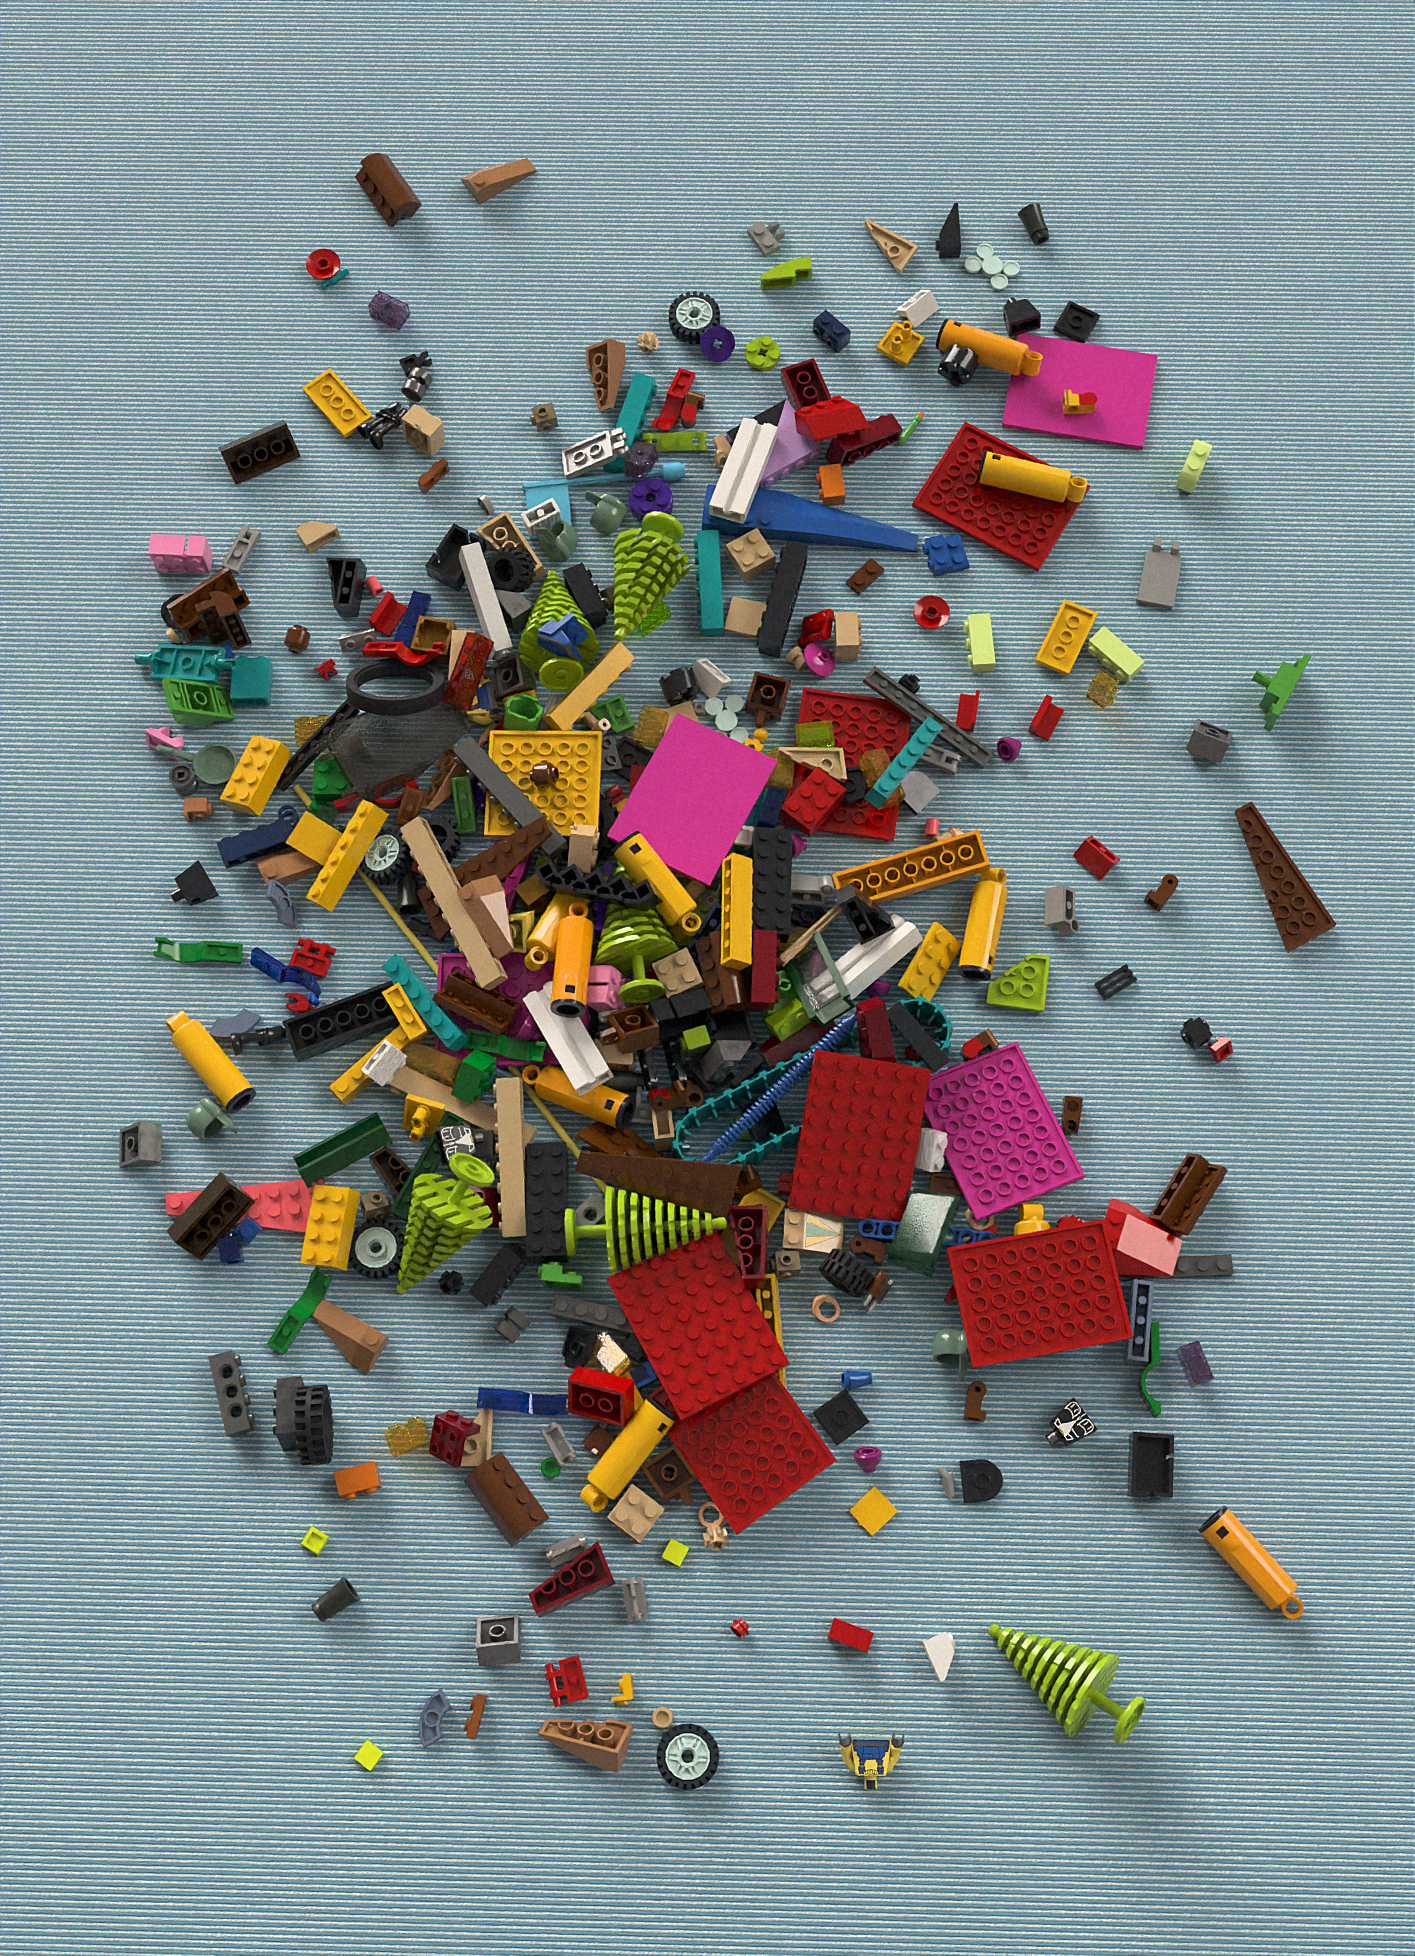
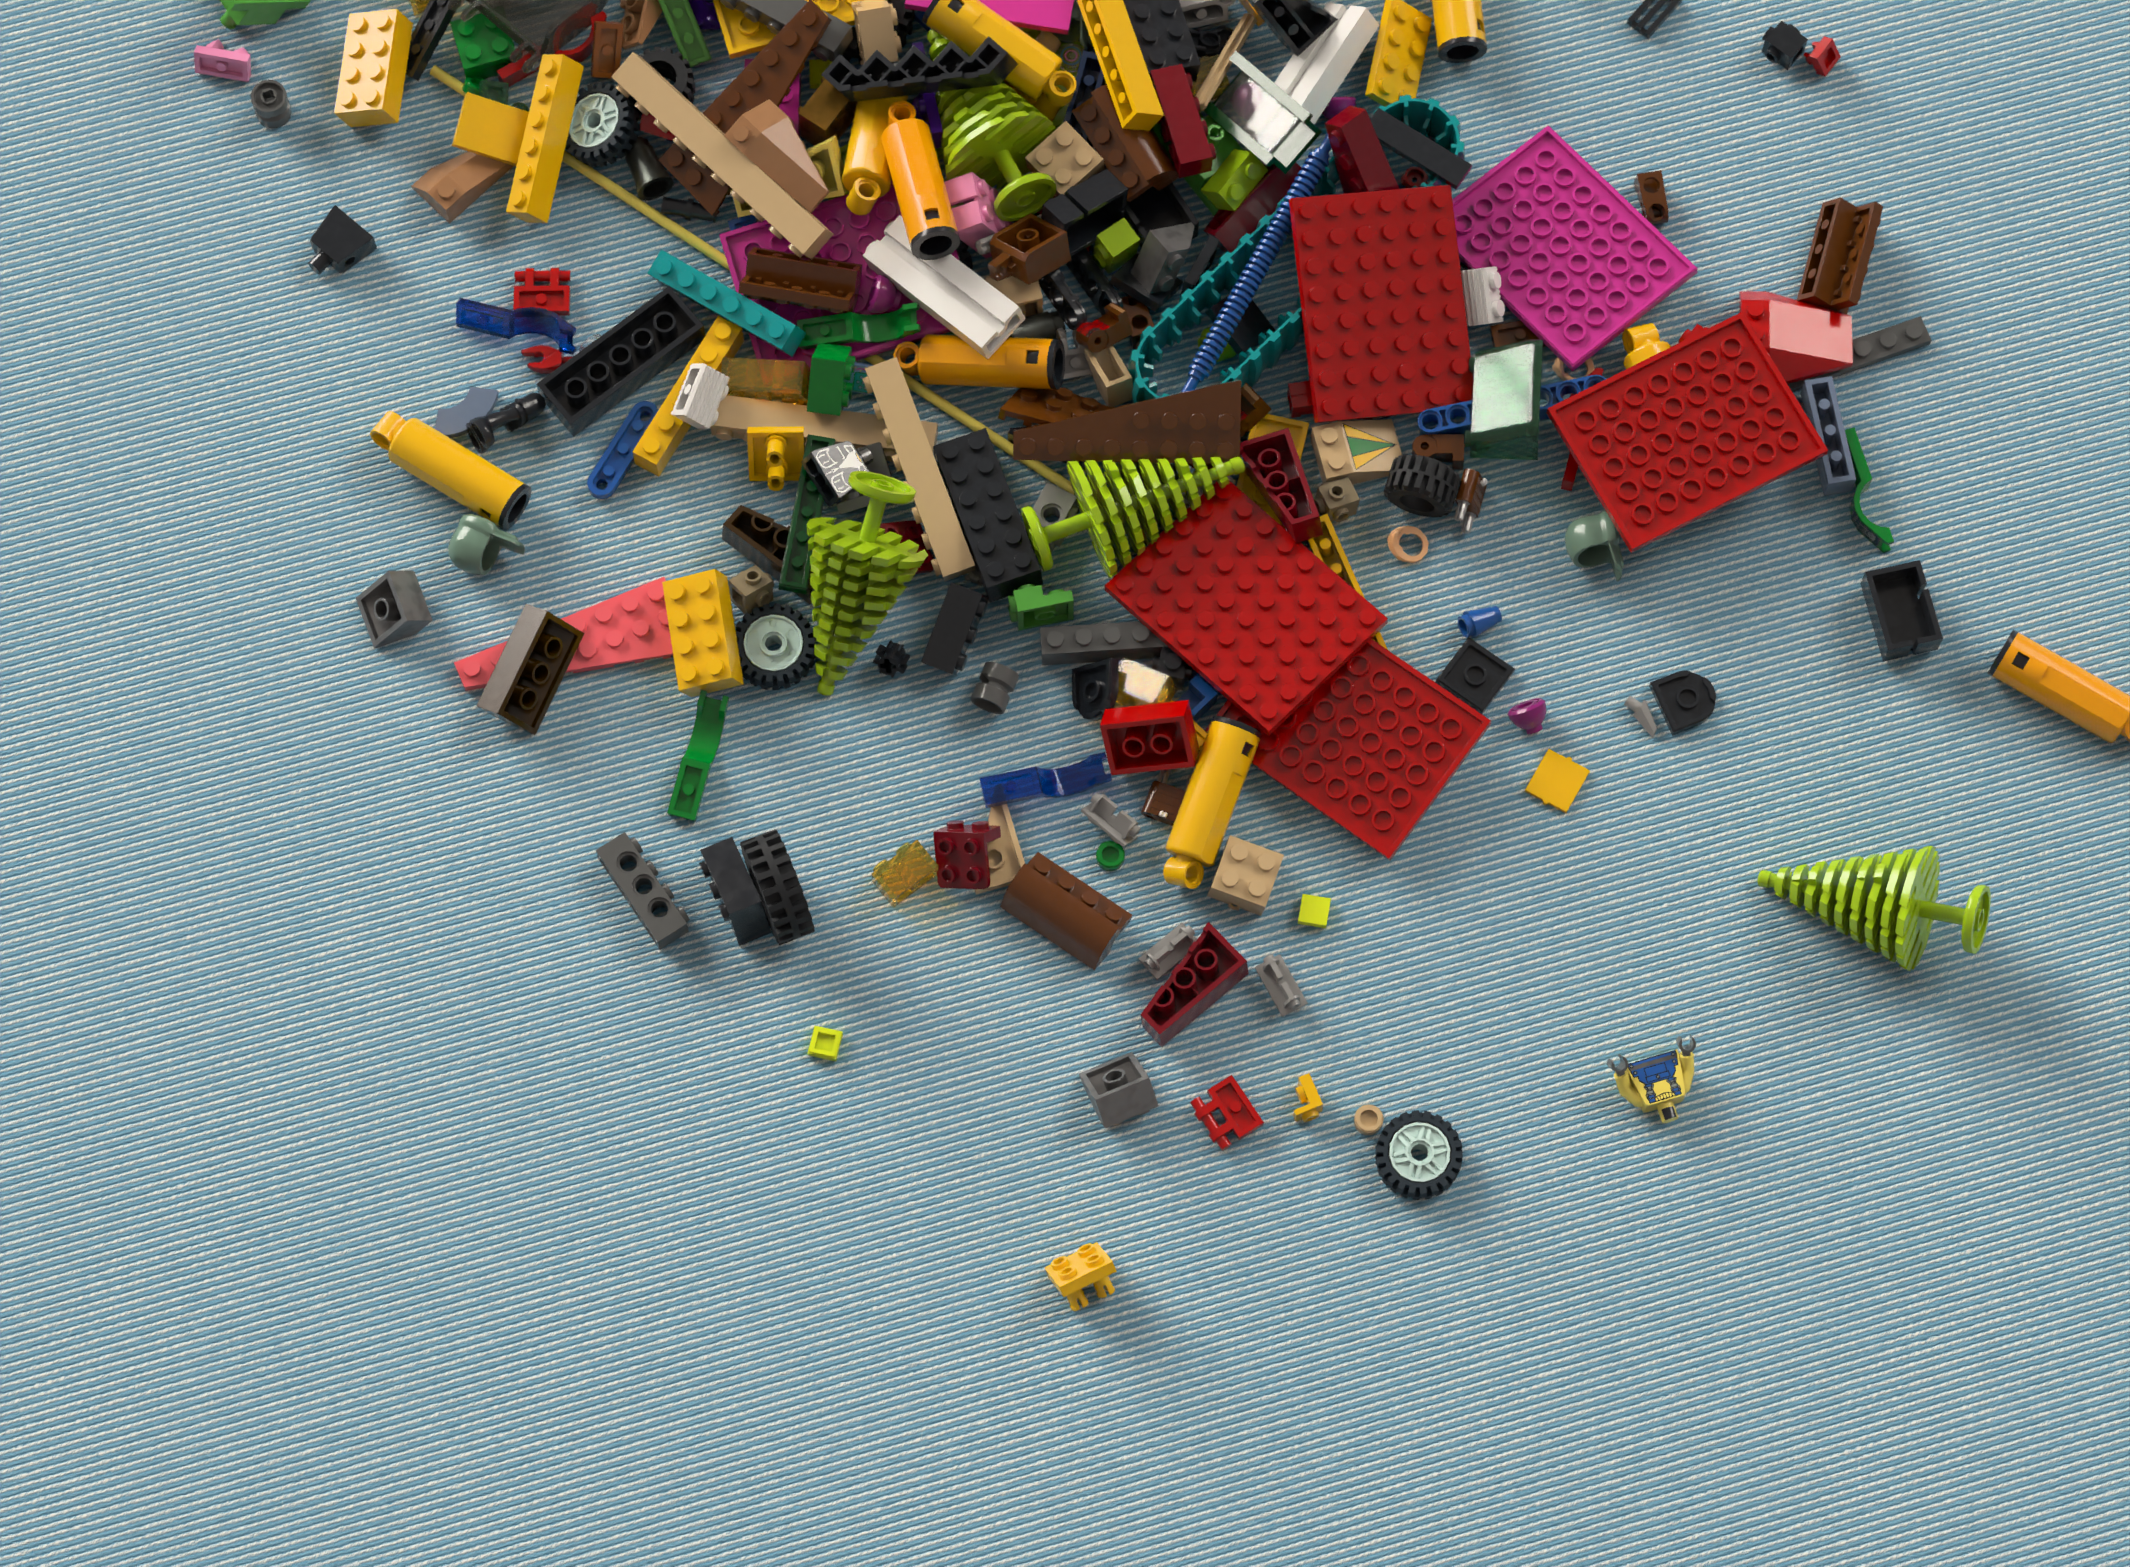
camera: 20 degrees left, 0 degrees up
(197, 808) = (304, 137): nougat brick -> none
(203, 951) = (385, 327): green piece -> none
(212, 763) = (305, 69): sand green piece -> none
(230, 1249) = (572, 706): clear blue brick -> none
(248, 1229) = (586, 673): blue plate -> none
(258, 842) = (409, 157): dark blue hinge -> none
(280, 899) = (483, 240): sand blue tile -> none
(319, 1087) = (618, 455): none -> blue plate
(335, 1600) = (882, 1106): pearl dark grey plant -> none
(342, 1149) = (680, 528): dark green piece -> none
(353, 1337) = (783, 768): medium nougat wedge -> none
(358, 1480) = (857, 948): orange brick -> none
(369, 1755) = (996, 1286): neon yellow tile -> none
(404, 1012) = (704, 321): yellow plate -> none
(427, 1766) = (1079, 1270): none -> yellow plate
(431, 1718) = (1063, 1215): sand blue tile -> none
(472, 1725) = (1120, 1179): dark orange plate -> none
(595, 1742) = (1296, 1176): medium nougat wedge -> none
(678, 1485) = (1276, 829): reddish brown hinge -> none
(715, 1537) = (1362, 874): tan gear -> none
(721, 1521) = (1356, 859): light nougat piece -> none
(740, 1628) = (1432, 978): red plate -> none
(850, 1635) = (1580, 943): red panel -> none
(940, 1653) = (1704, 928): white slope -> none
(974, 1401) = (1644, 603): reddish brown leg -> none
(978, 1044) = (1498, 143): leg -> none
(1022, 985) = (1531, 50): lime plate -> none
(1070, 1425) = (1781, 593): black torso -> none
(1194, 1364) = (1917, 468): clear purple brick -> none

